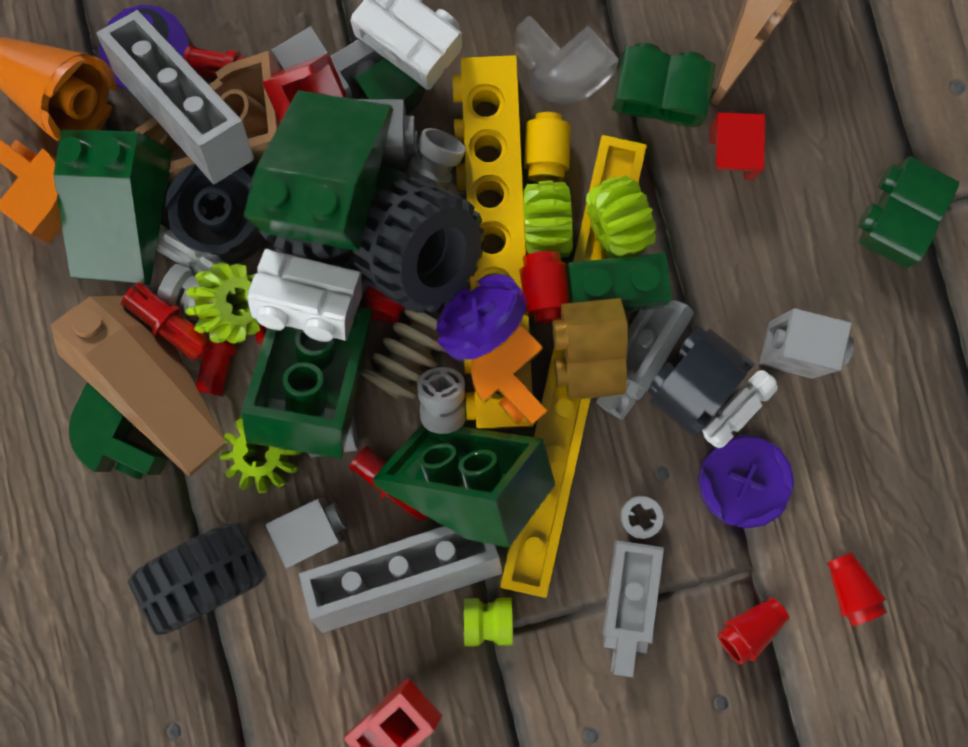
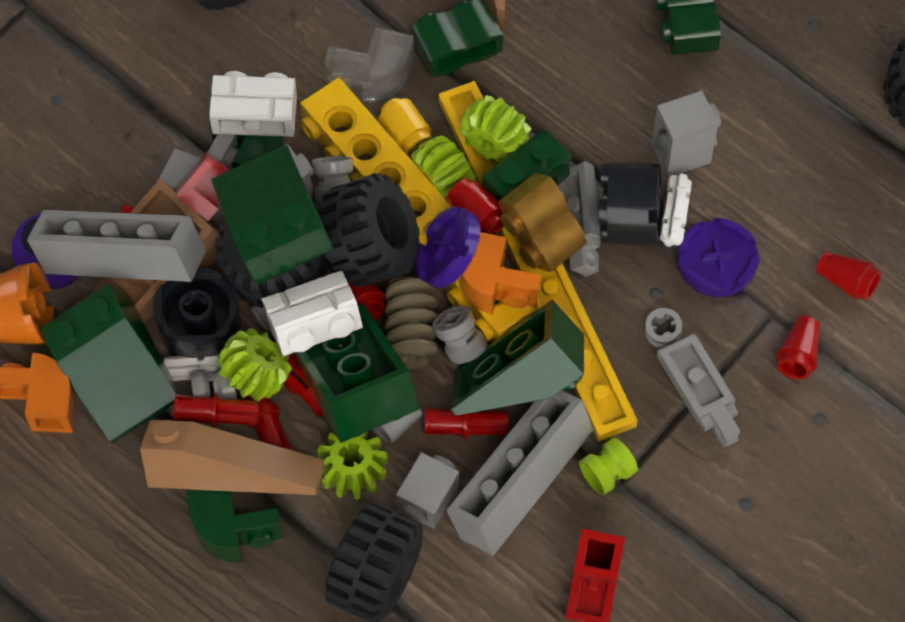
camera: 35 degrees left, 20 degrees down
(739, 142) = (538, 38): red panel -> none

